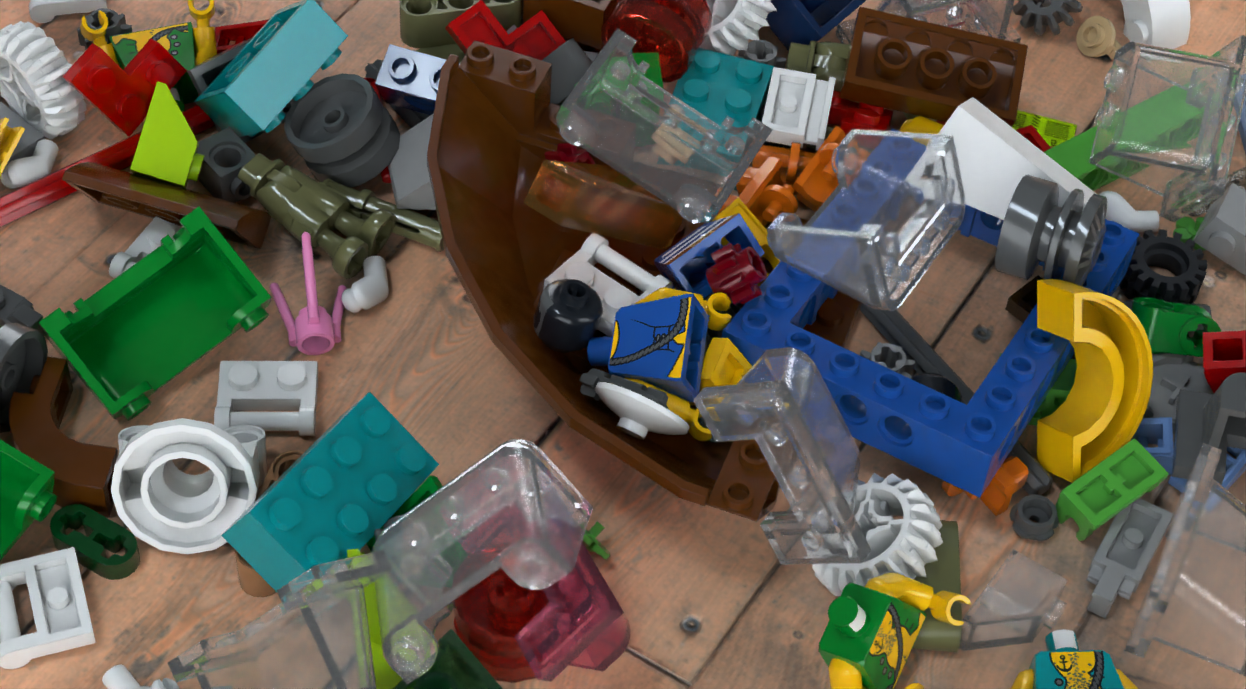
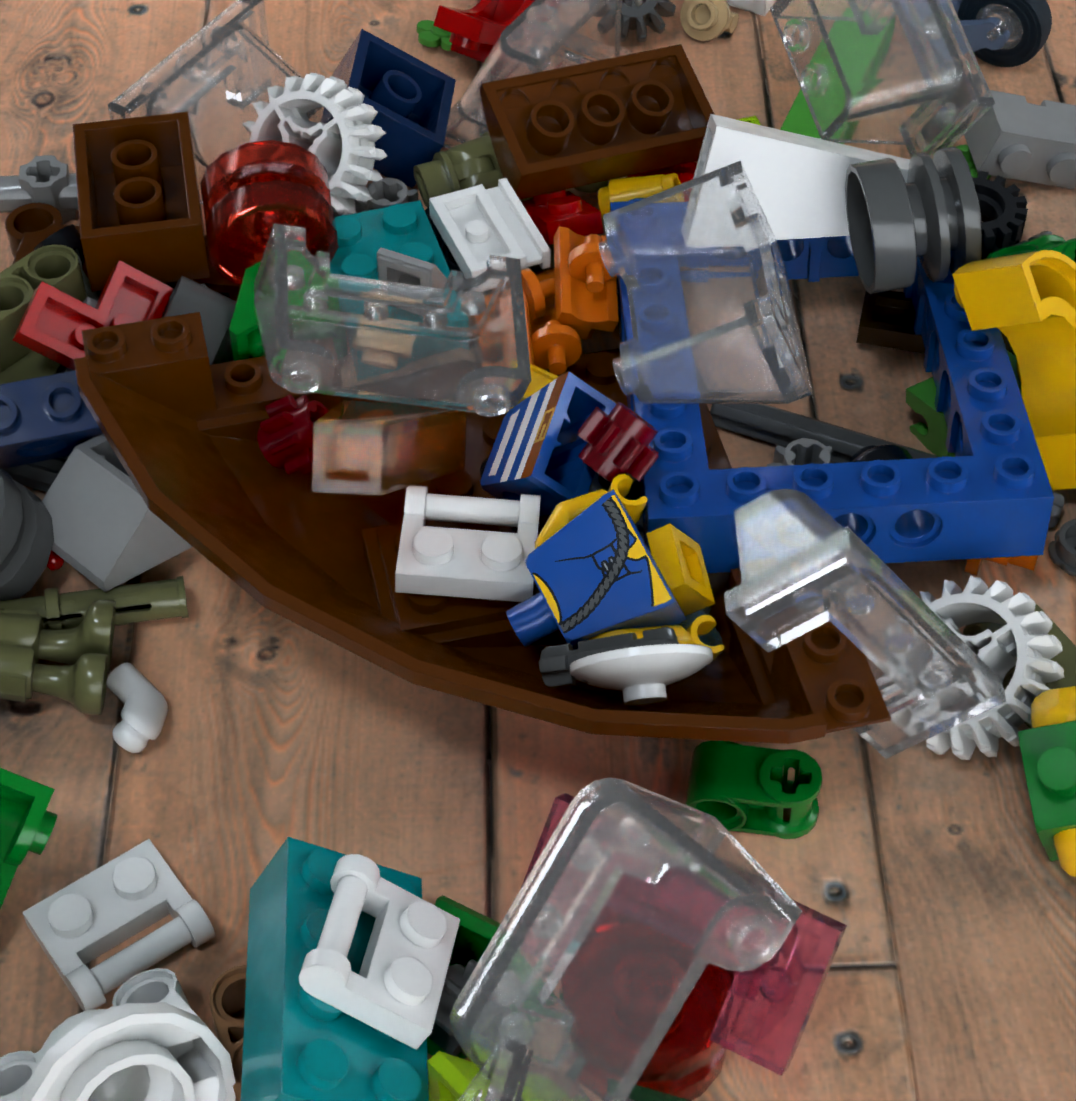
camera: 30 degrees left, 0 degrees up
(314, 329) = (111, 798): bright pink plant -> none
(375, 494) = (402, 962): none -> white plate
(567, 315) = (463, 601): black head -> none
(683, 536) = (750, 788): none -> green piece
(710, 105) = (408, 270): none -> light grey slope

